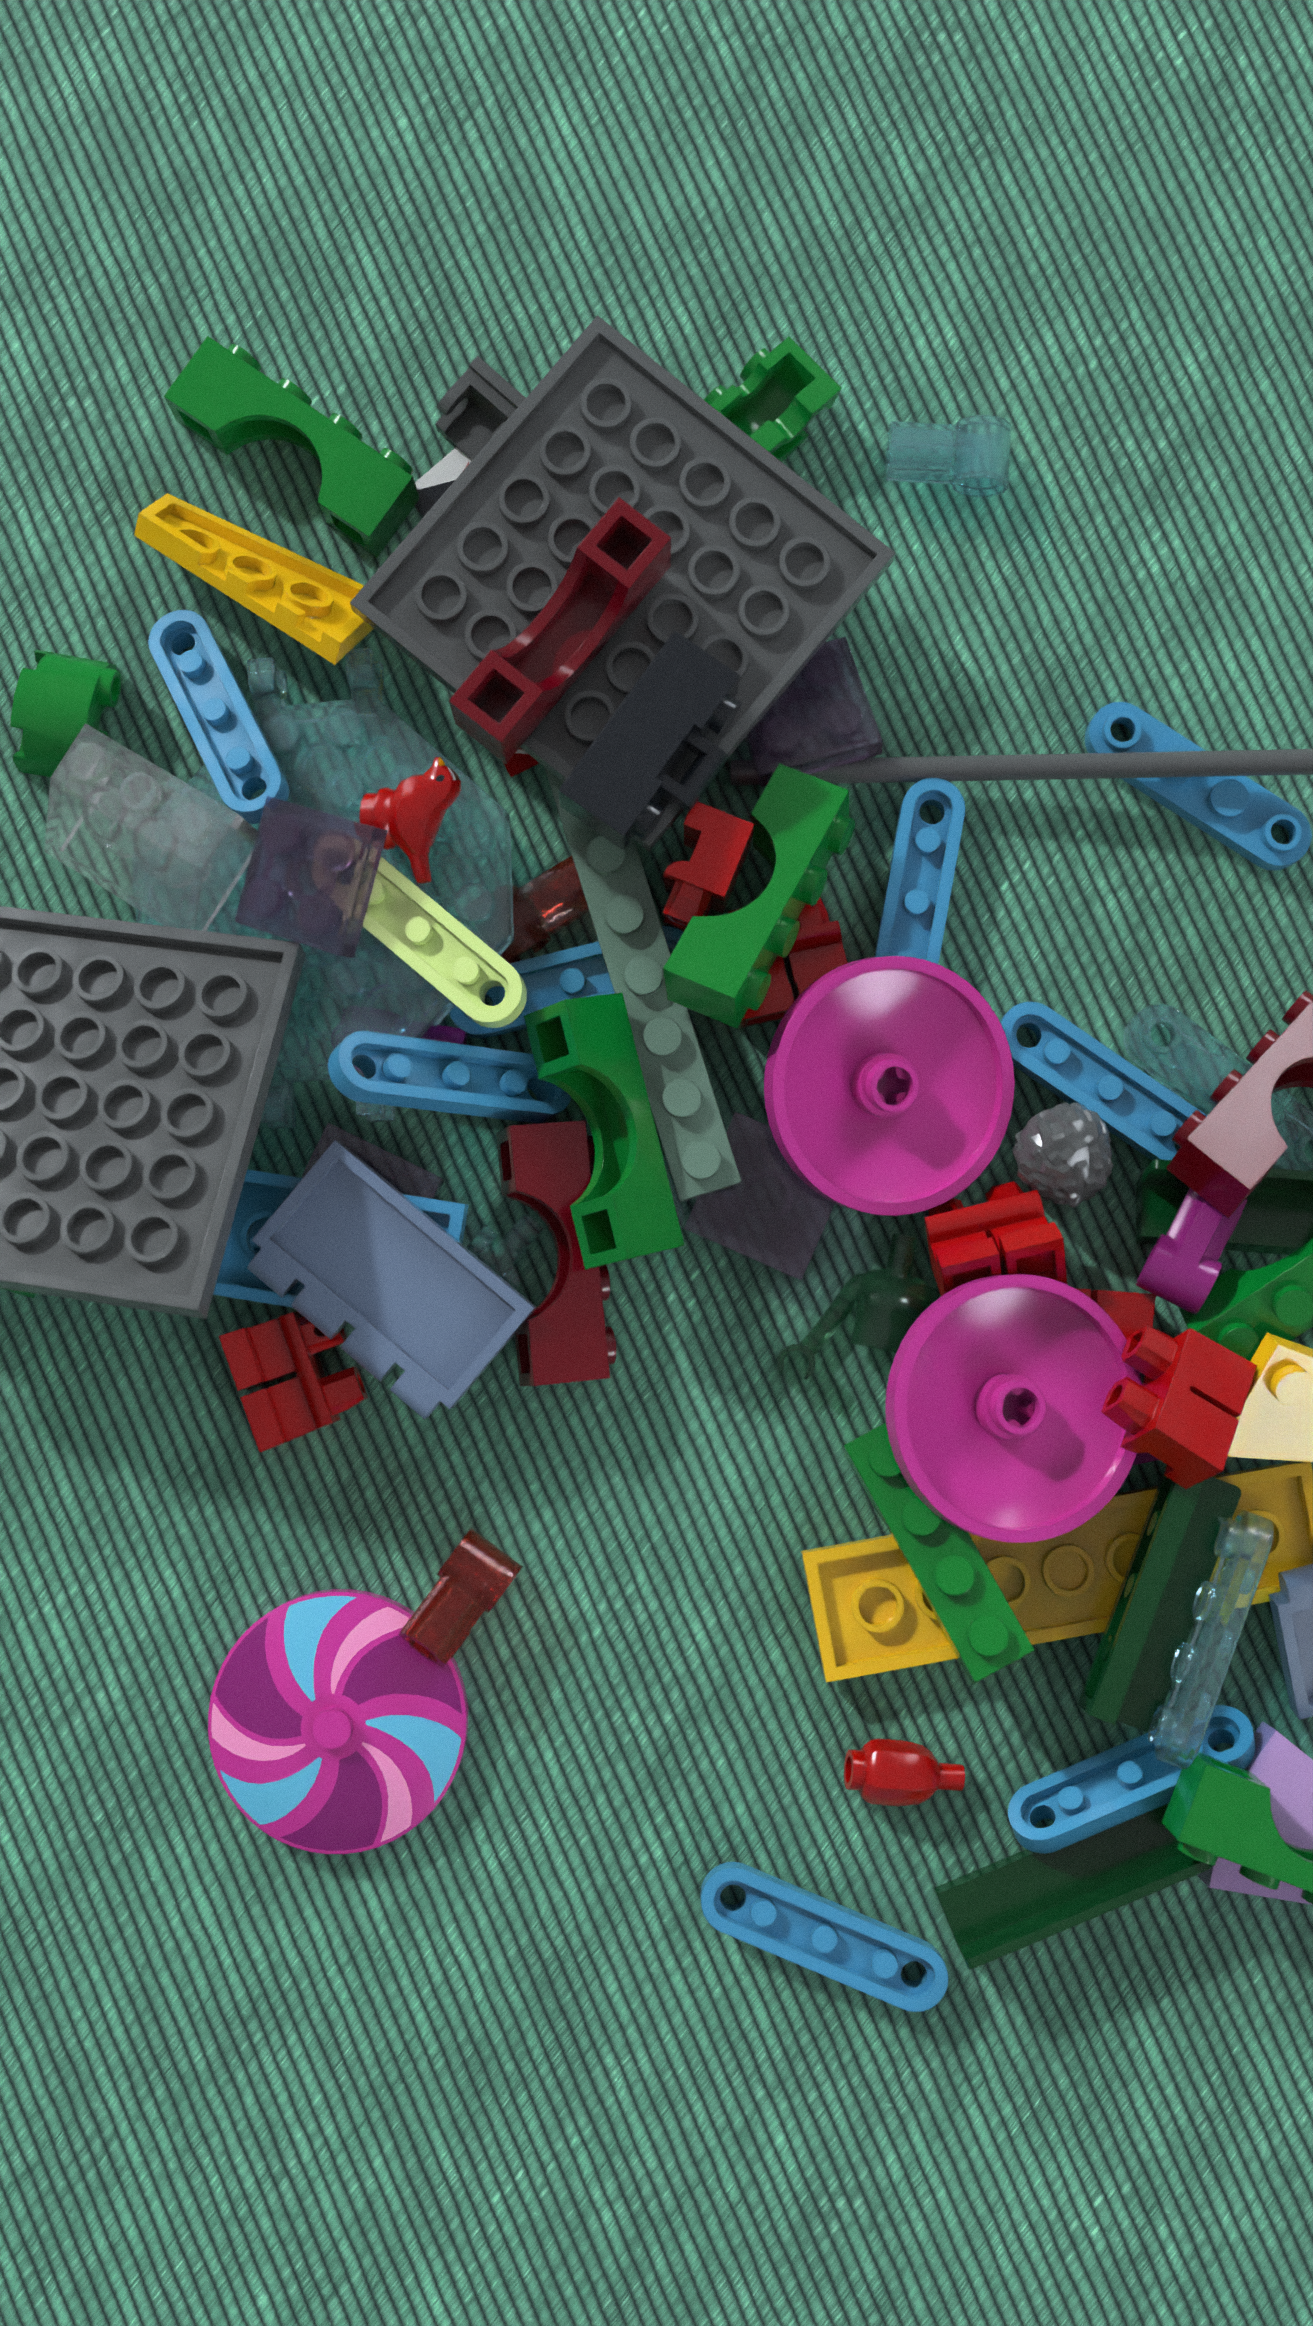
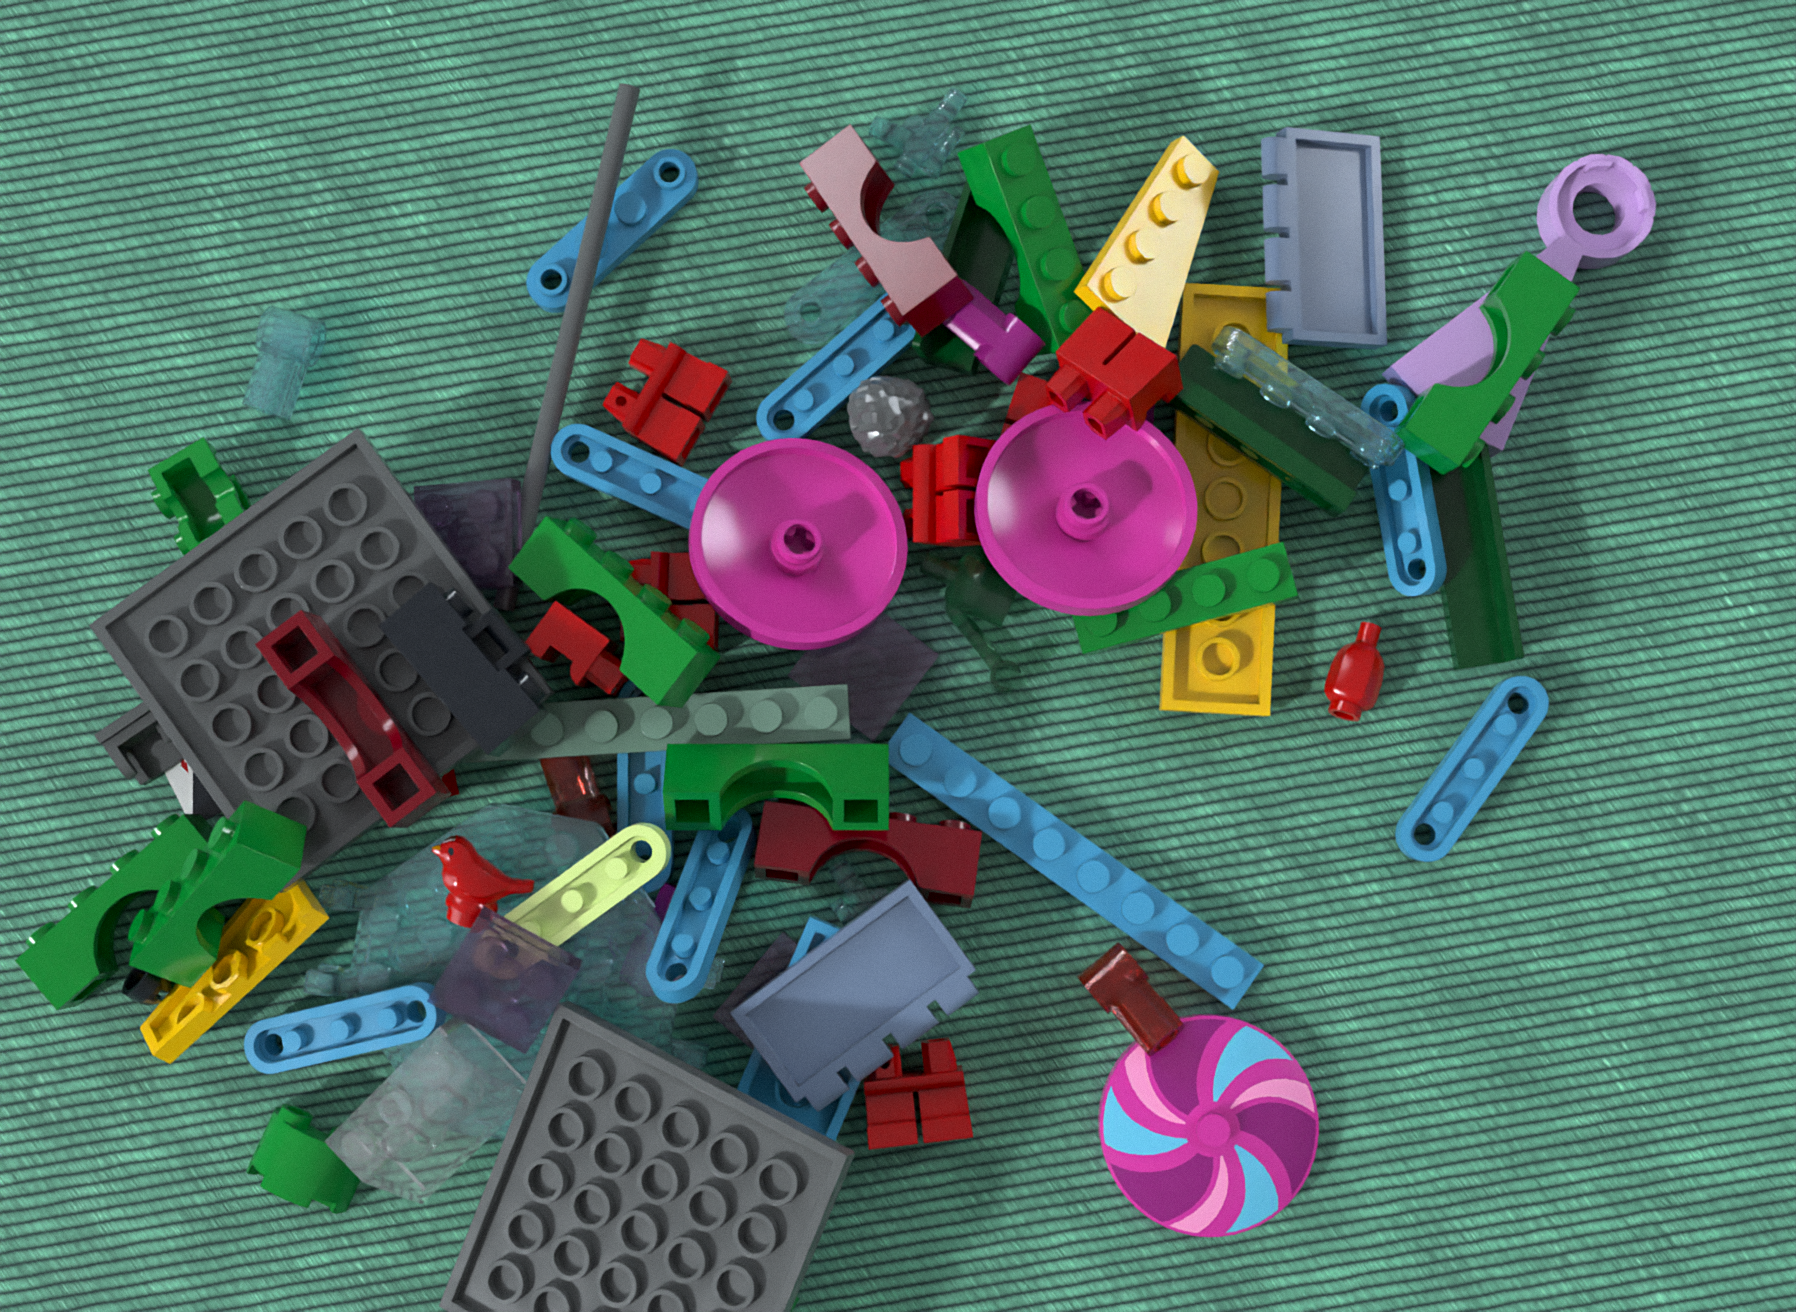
camera: 75 degrees left, 0 degrees up
(220, 487) = (145, 987): none -> black hinge
(375, 549) = (244, 858): none -> green arch
(601, 1492) = (1072, 861): none -> dark azure plate
(1045, 897) = (672, 377): none -> red hips

